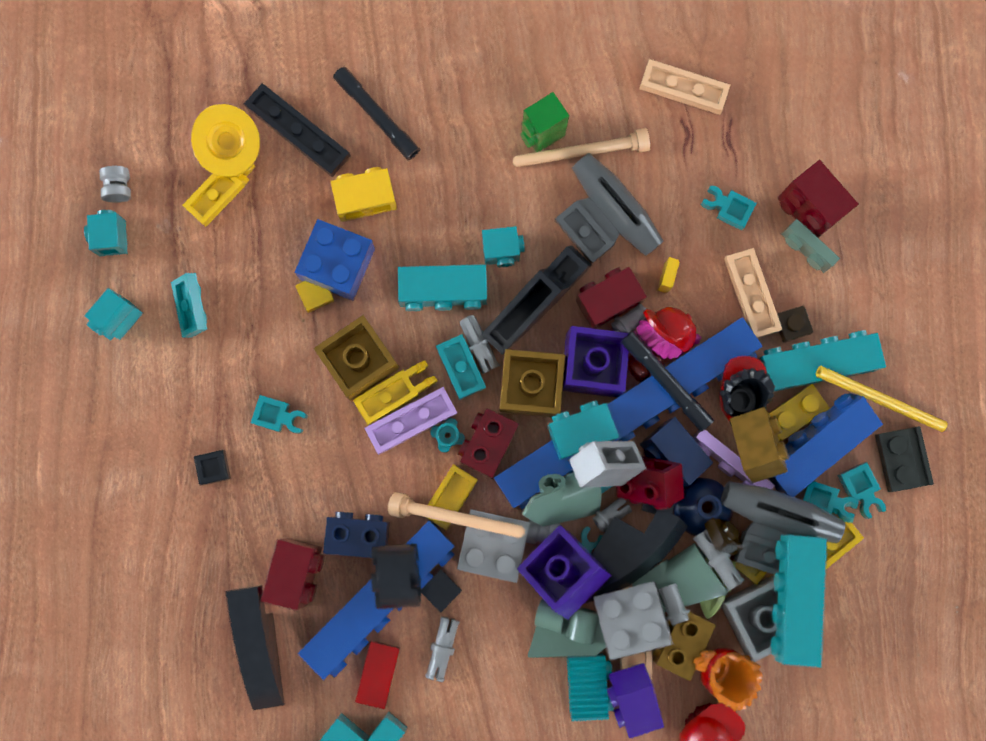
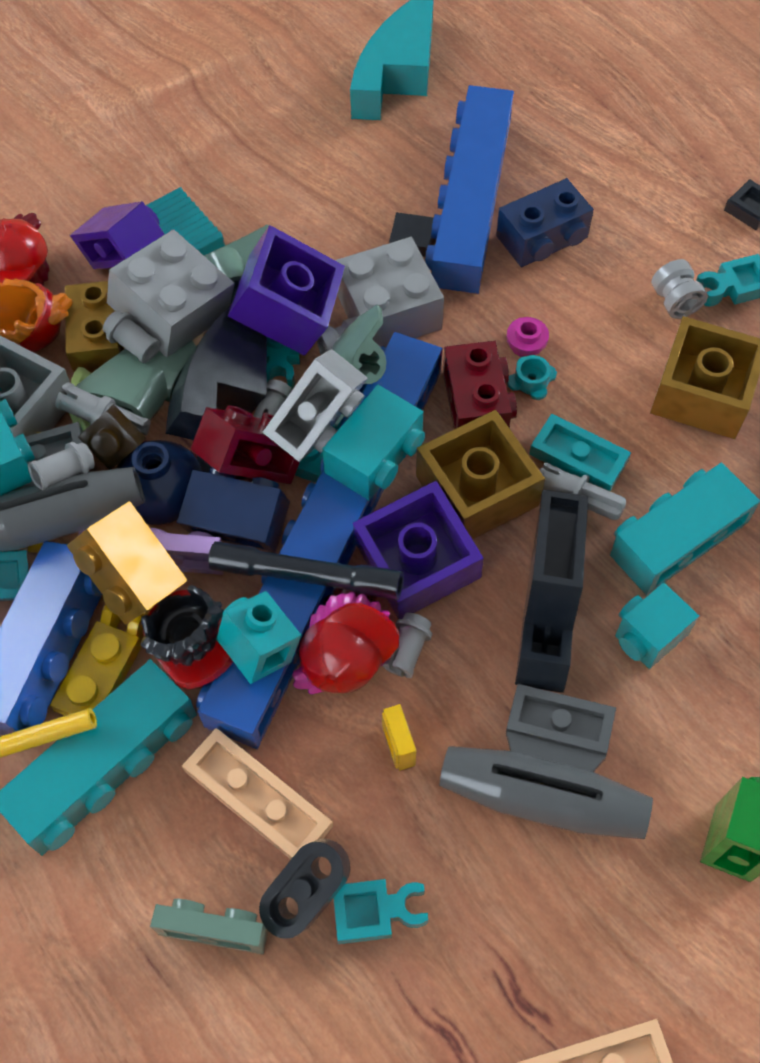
camera: 150 degrees right, 20 degrees down
(255, 647) = (564, 80): black slope -> none
(292, 574) = (582, 142): dark red brick -> none
(317, 432) = (677, 285): none -> light grey wheel
(377, 675) = (417, 135): red tile -> none
(392, 393) = (633, 378): yellow hinge -> none
(396, 576) = (472, 174): black brick -> none
(402, 505) = (521, 277): light nougat piece -> none
(410, 420) = (586, 364): lavender plate -> none
(435, 471) = (524, 344): none -> dark pink plate
(442, 649) = (368, 187): light grey pin -> none
(452, 492) = (475, 314): yellow tile -> none
(610, 297) = (457, 648): dark red brick -> none
(636, 141) = (589, 920): light nougat piece -> none
(716, 356) = (257, 636): none -> teal brick
(758, 233) = (306, 885): none -> black plate
(765, 525) = (61, 465): none -> light grey pin
(794, 324) = (169, 796): dark brown plate -> none
(817, 199) = (240, 996): dark red brick -> none

